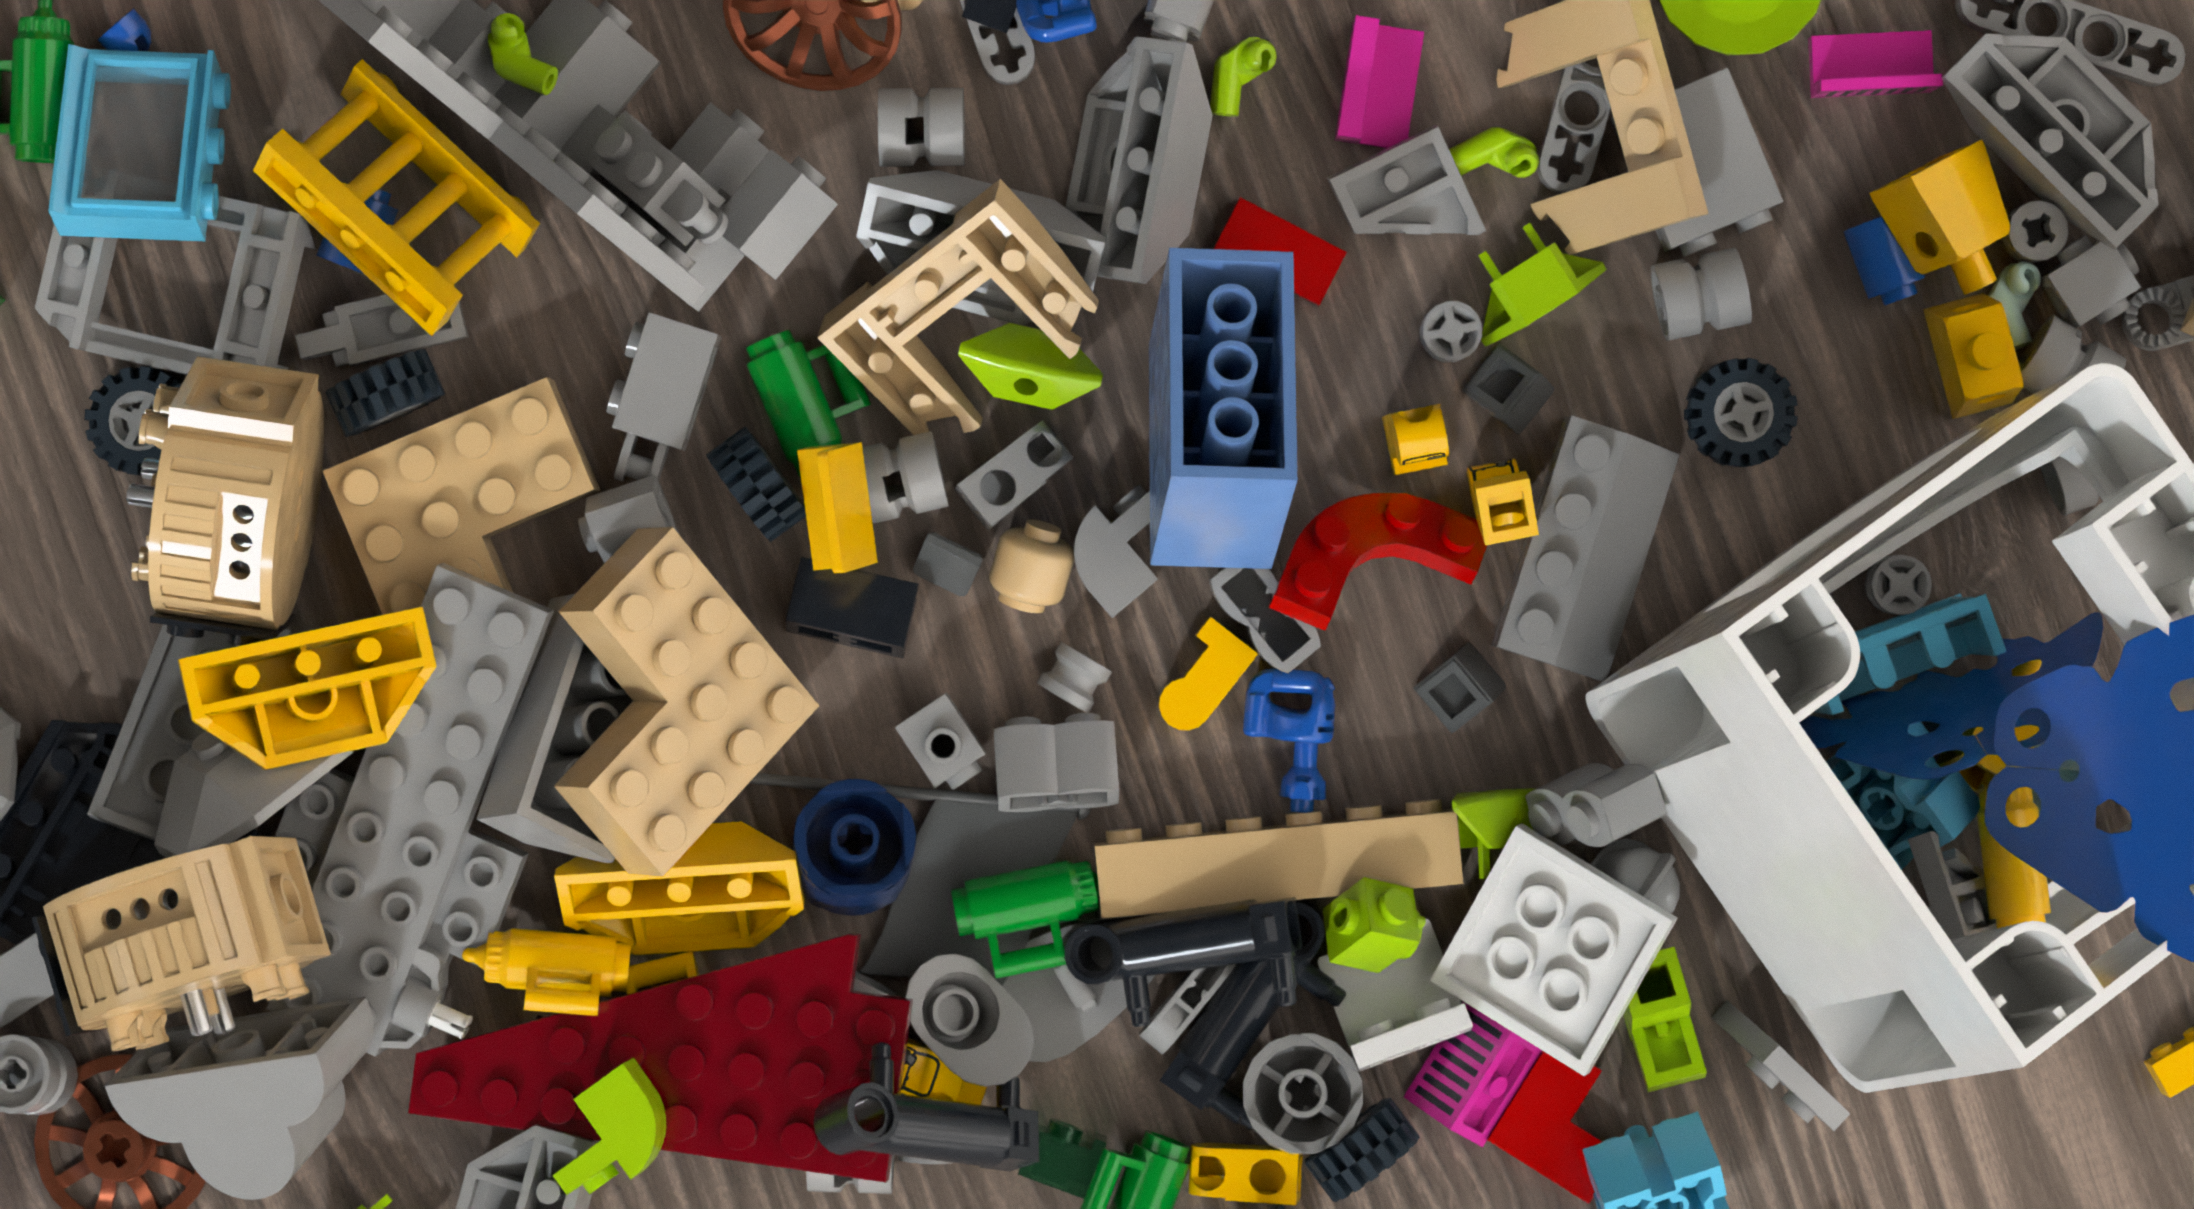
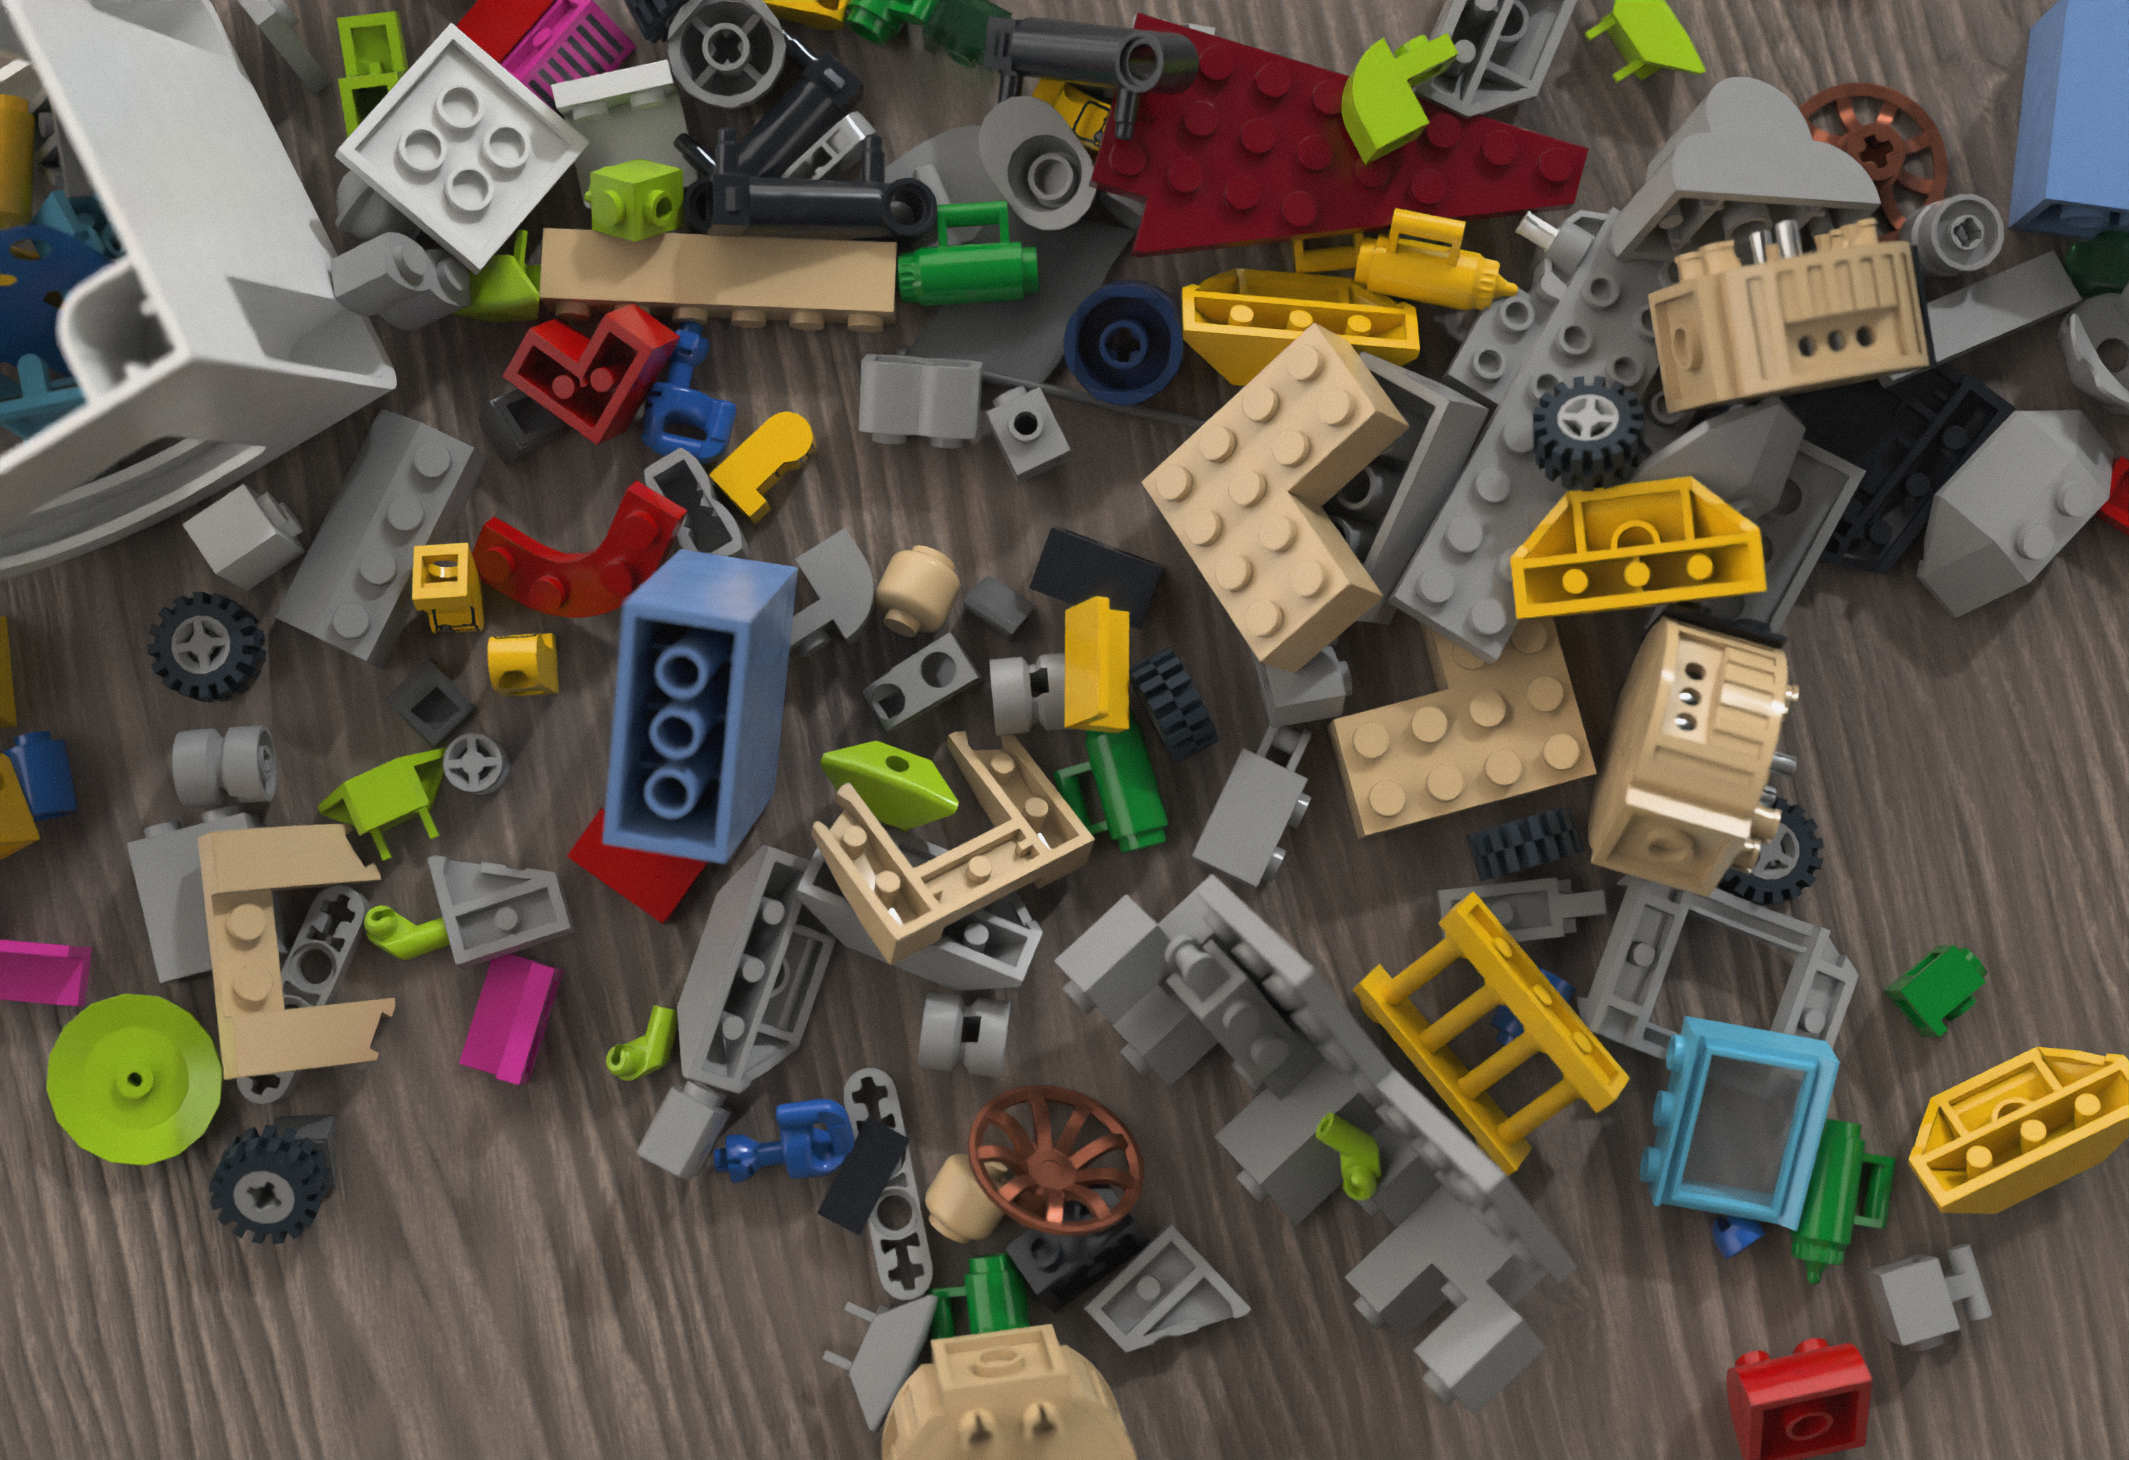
camera: 175 degrees left, 5 degrees down
(396, 807) = (1575, 414): none -> black wheel
(1074, 677) = (891, 480): light grey wheel -> none
(1391, 732) = (594, 381): none -> red brick
(1713, 527) = (246, 536): none -> white brick

